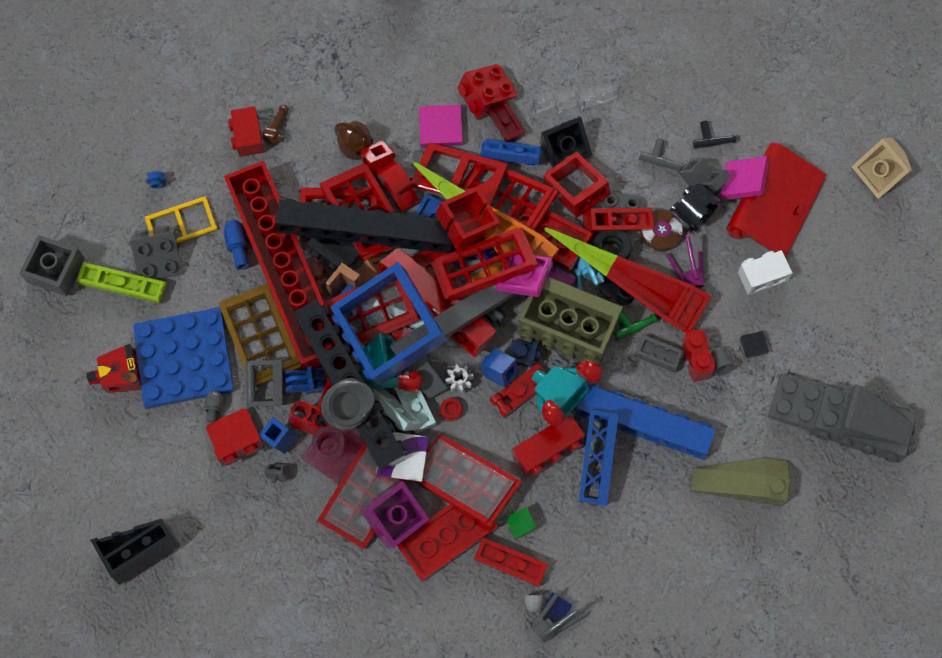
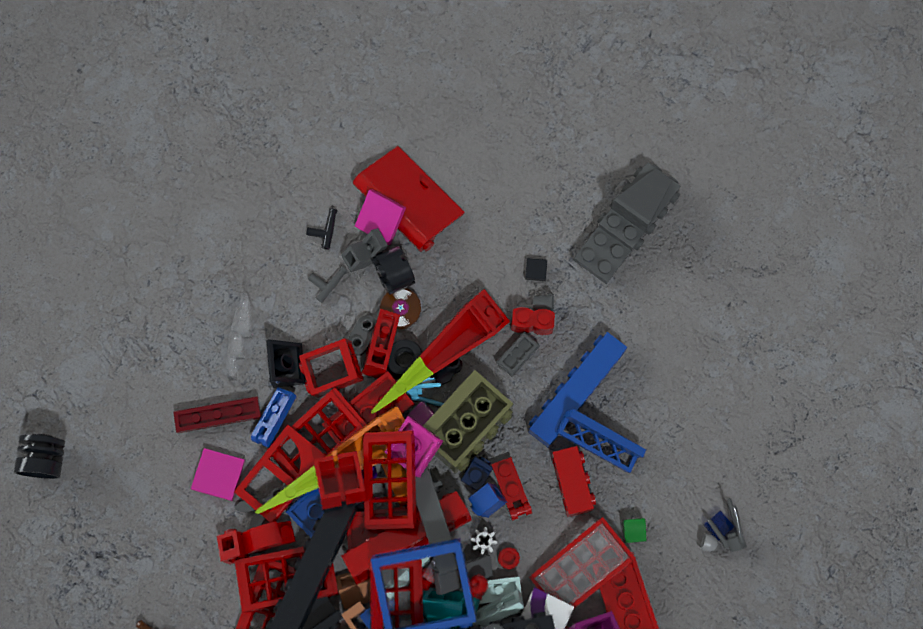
camera: 75 degrees left, 5 degrees up
(352, 138) = (204, 564): reddish brown helmet -> none
(485, 88) = (198, 418): red bracket -> none
(510, 562) = (667, 551): red plate -> none
(563, 389) = (531, 451): teal torso -> none
(629, 328) = (485, 370): green piece -> none
(692, 276) = (458, 297): magenta plant -> none
(748, 480) = (656, 318): olive wedge -> none
(764, 272) = (474, 234): white brick -> none
(883, 166) = (411, 95): tan slope -> none

